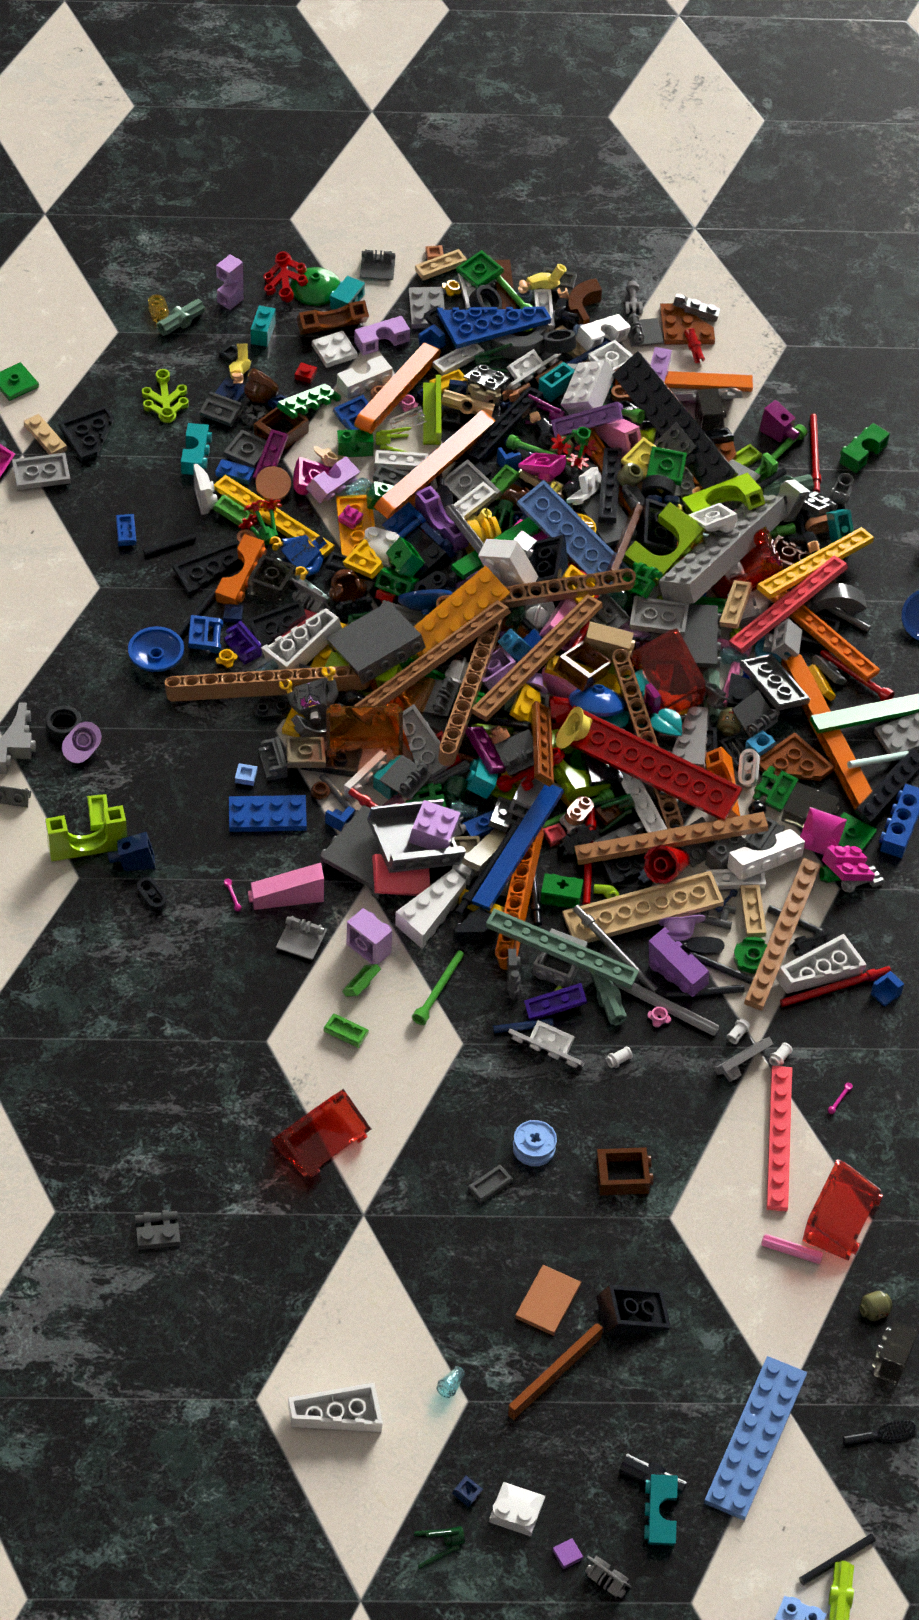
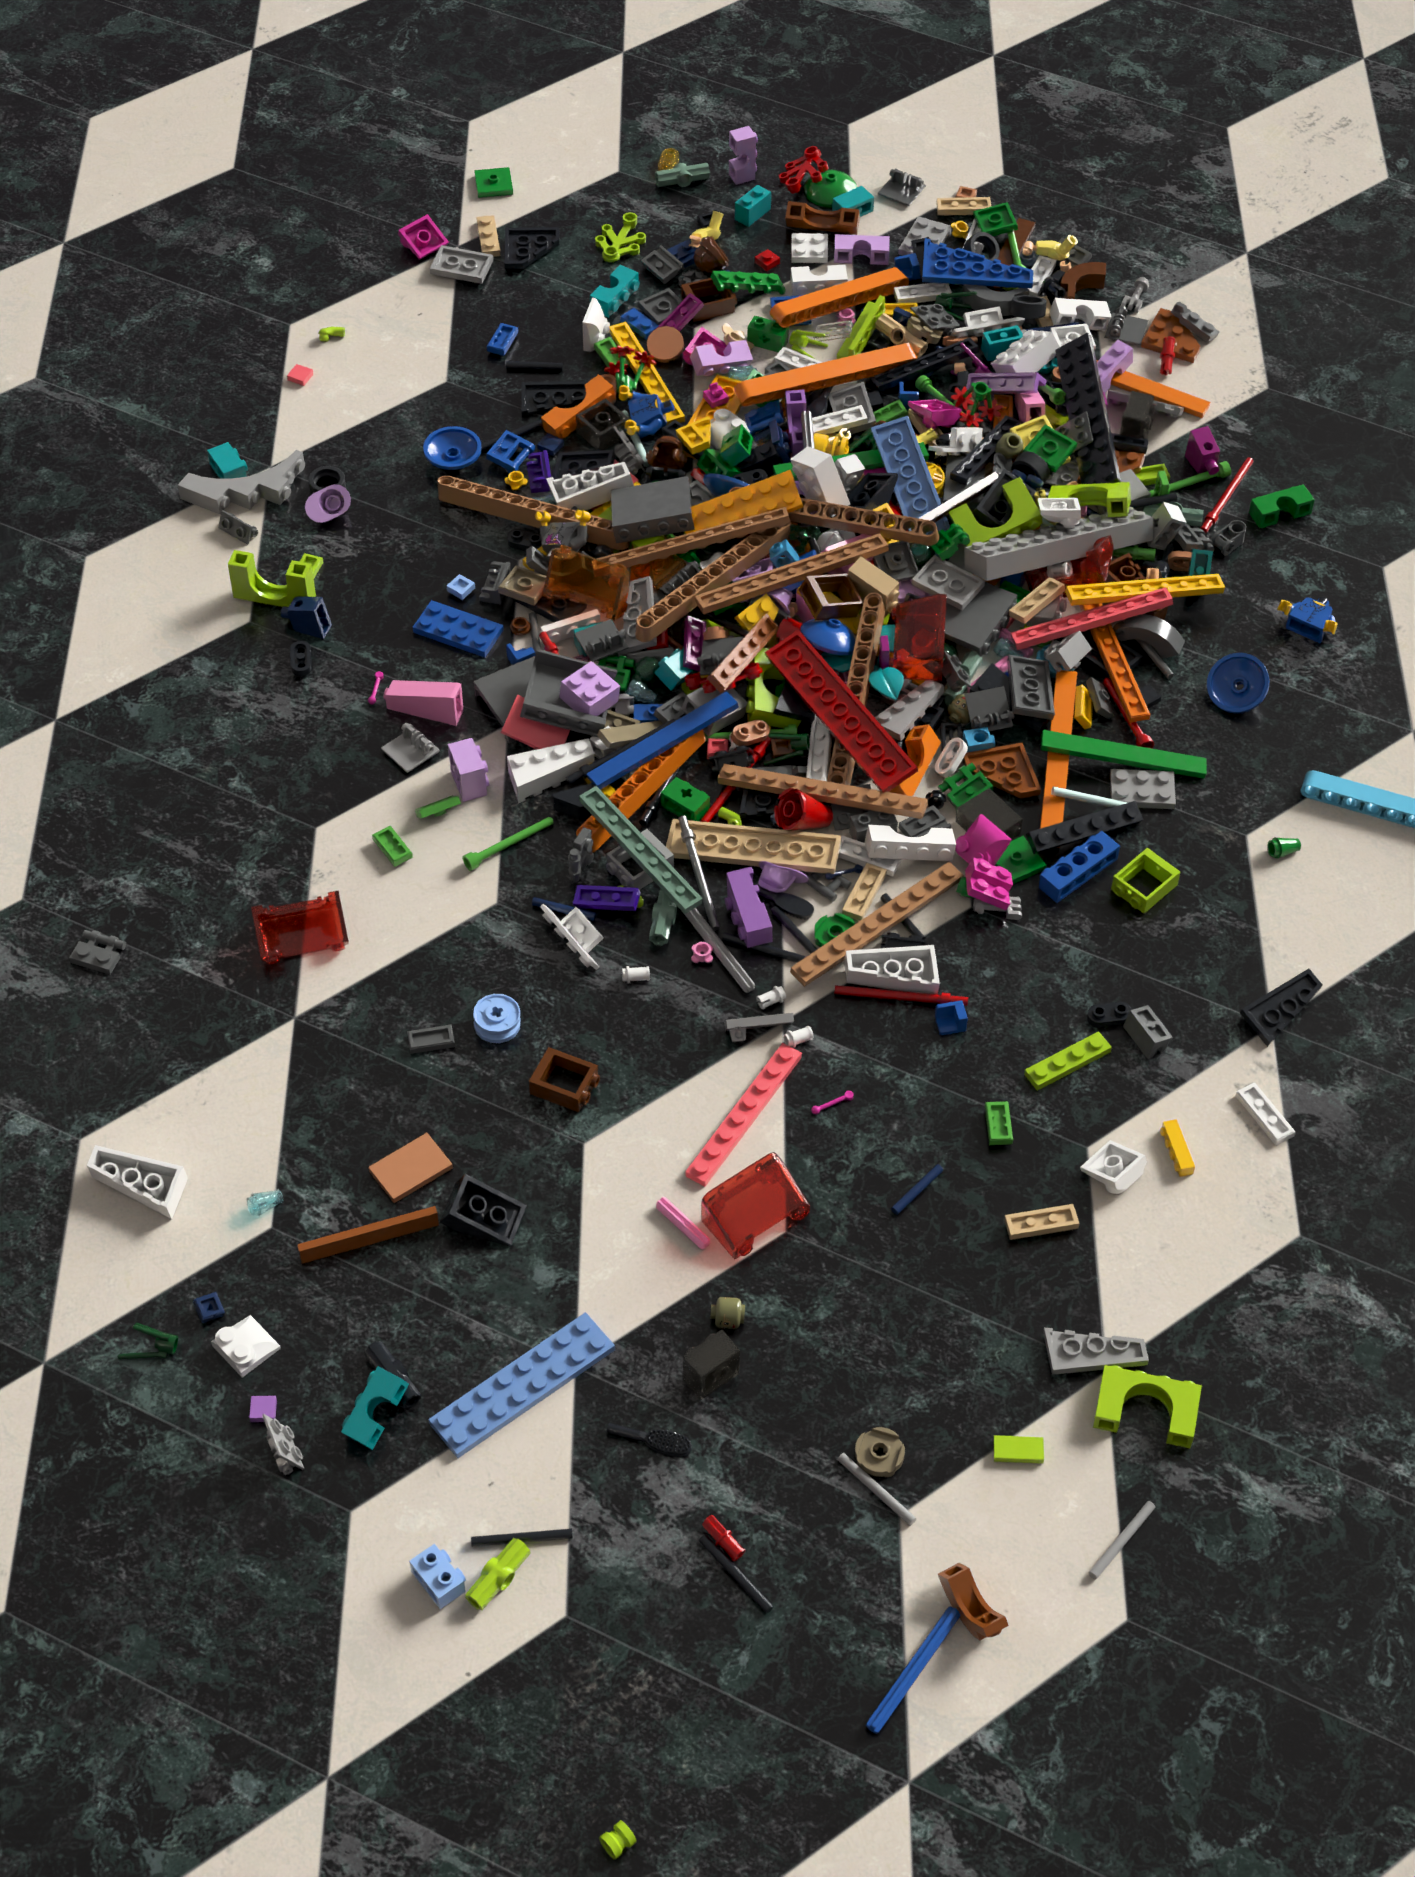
camera: 30 degrees right, 0 degrees up
(574, 728) = (784, 651): light yellow piece -> none

